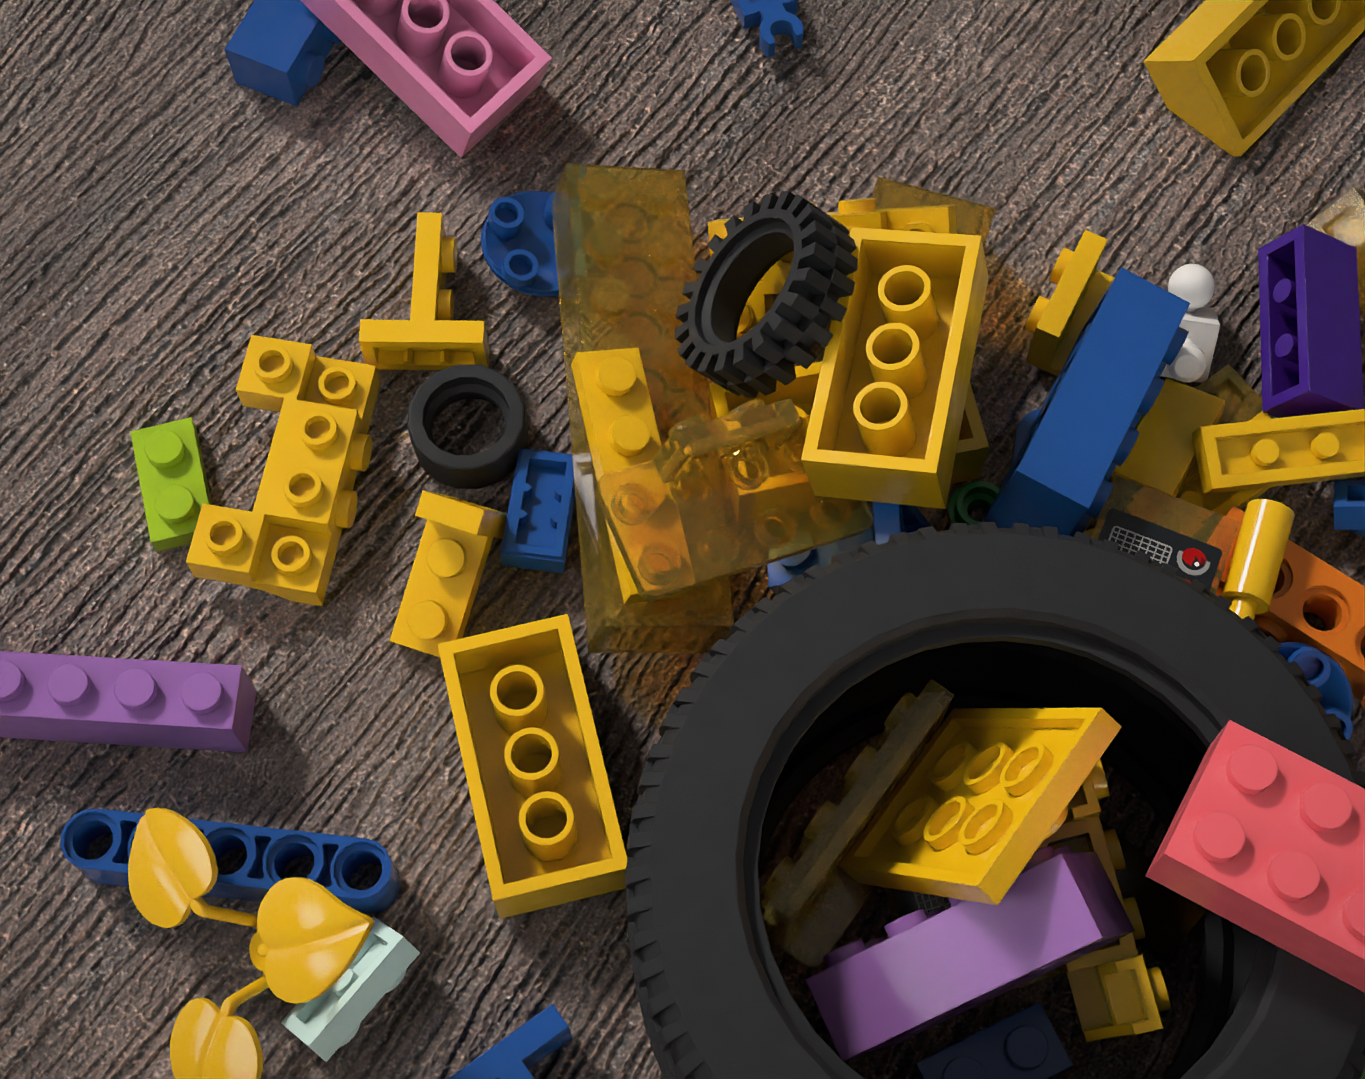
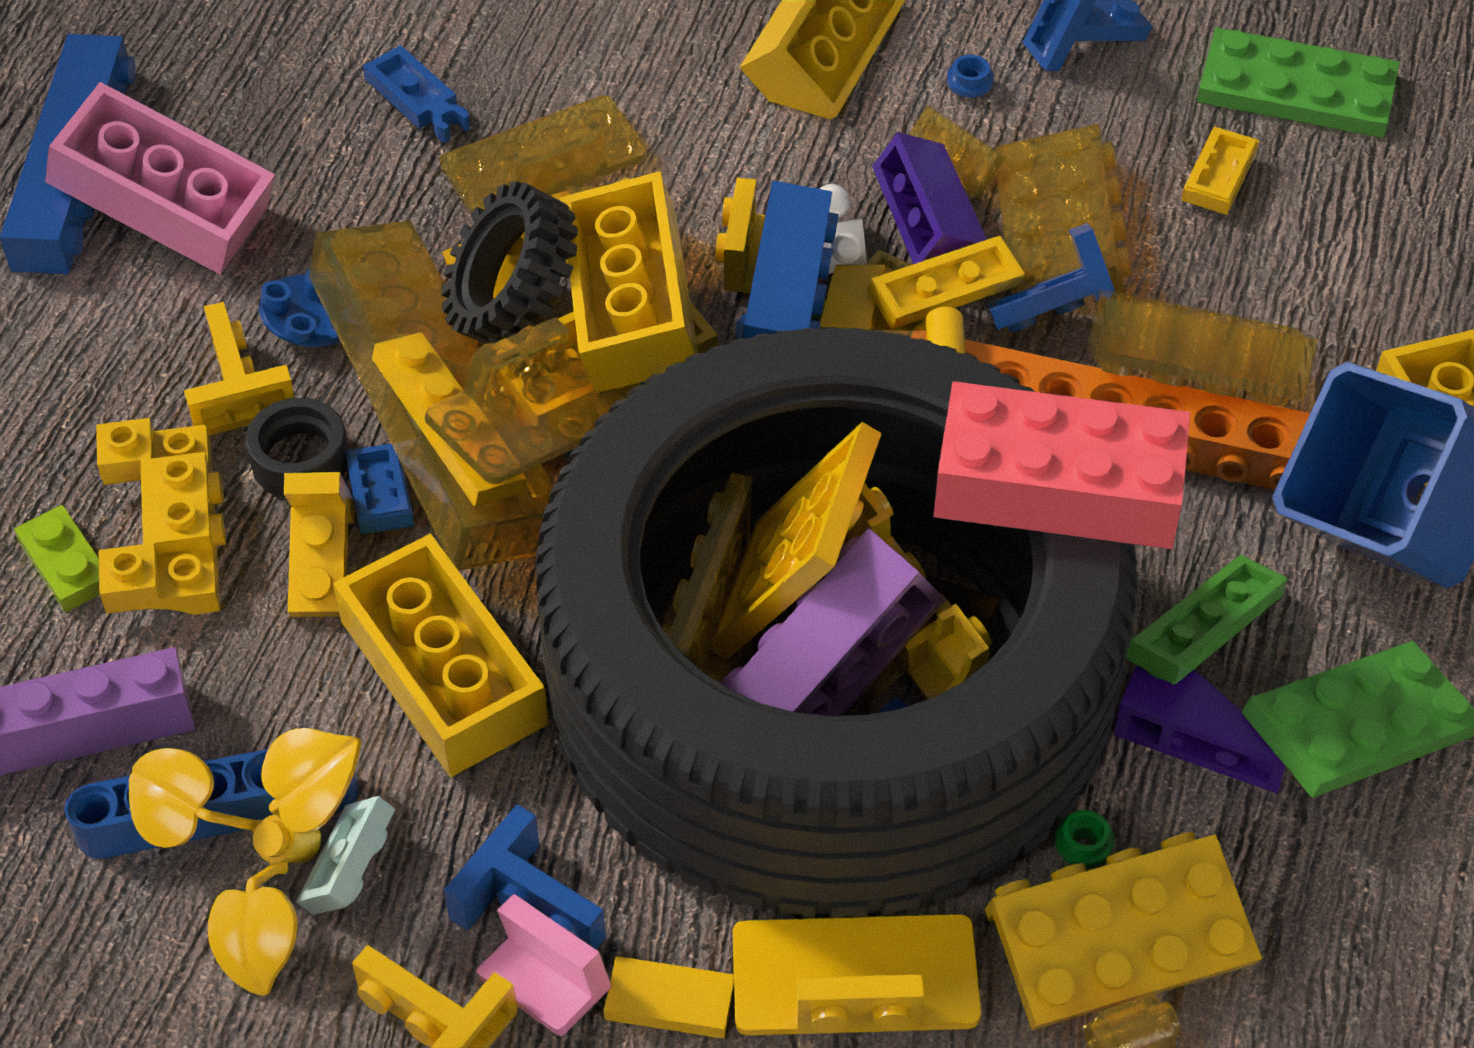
camera: 20 degrees left, 15 degrees down
(873, 113) = (546, 153): none -> clear yellow bracket

